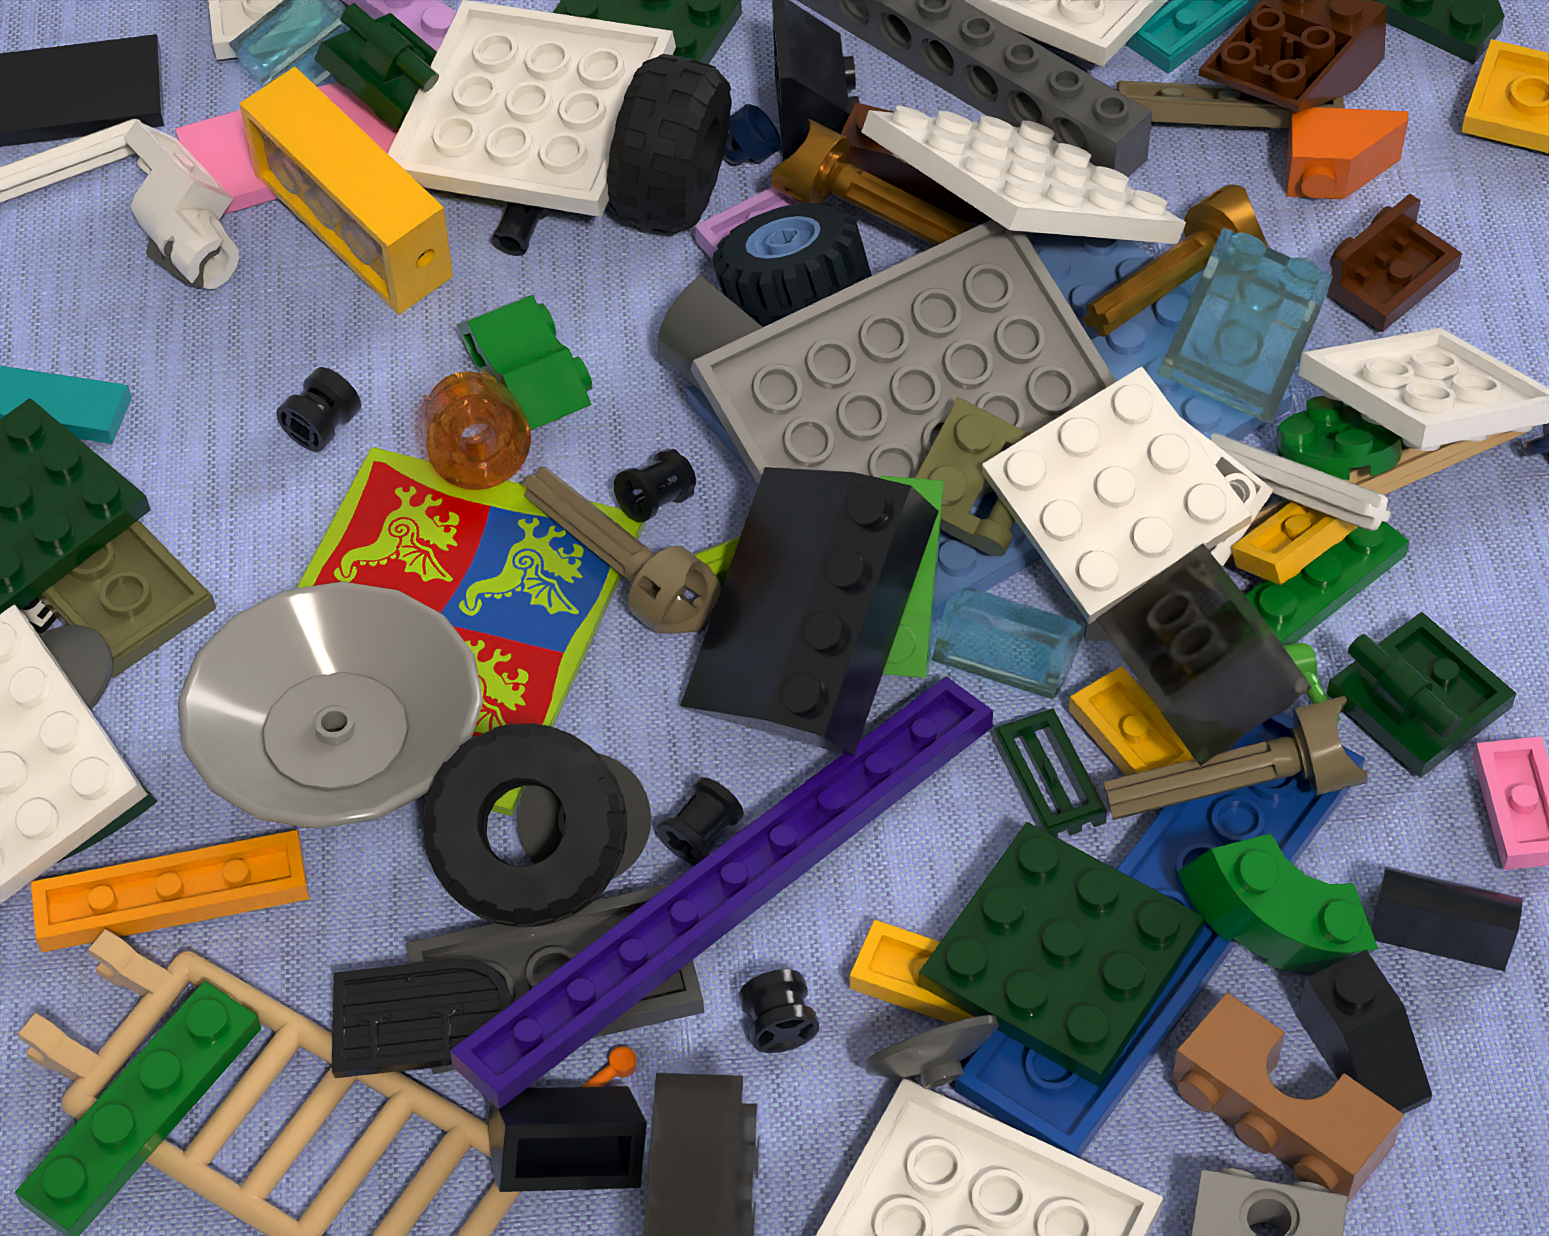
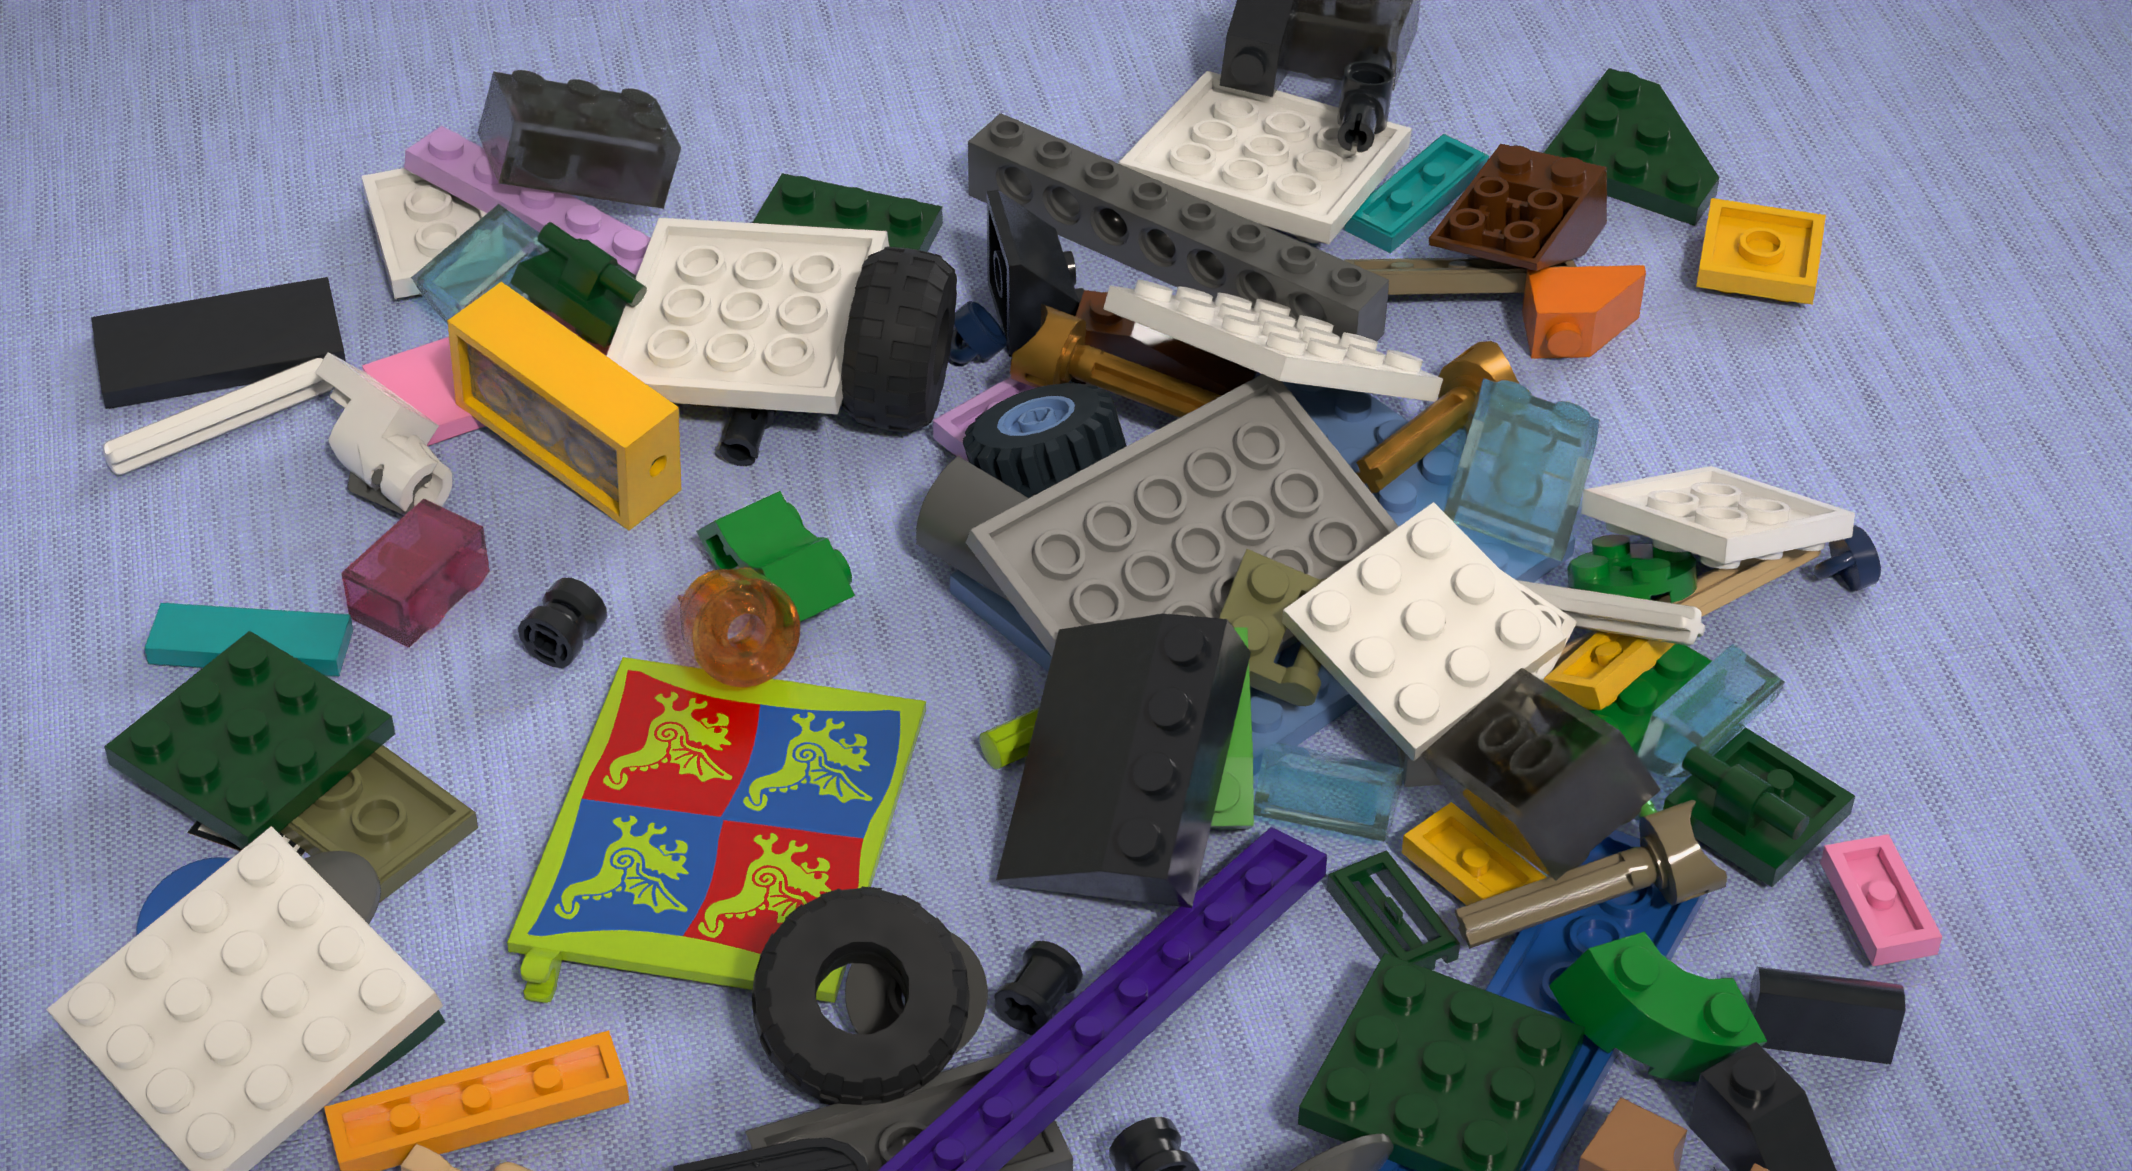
camera: 10 degrees left, 10 degrees down
(192, 347) = (416, 572): none -> clear pink brick
(318, 663) = (631, 895): light grey dish -> none
(654, 485) = (930, 659): black bush -> none
(655, 578) = (952, 755): dark tan piece -> none
(890, 972) = (1266, 1112): yellow plate -> none
(1387, 592) = (1708, 711): none -> clear light blue brick
(1390, 265) = (1651, 410): reddish brown bracket -> none

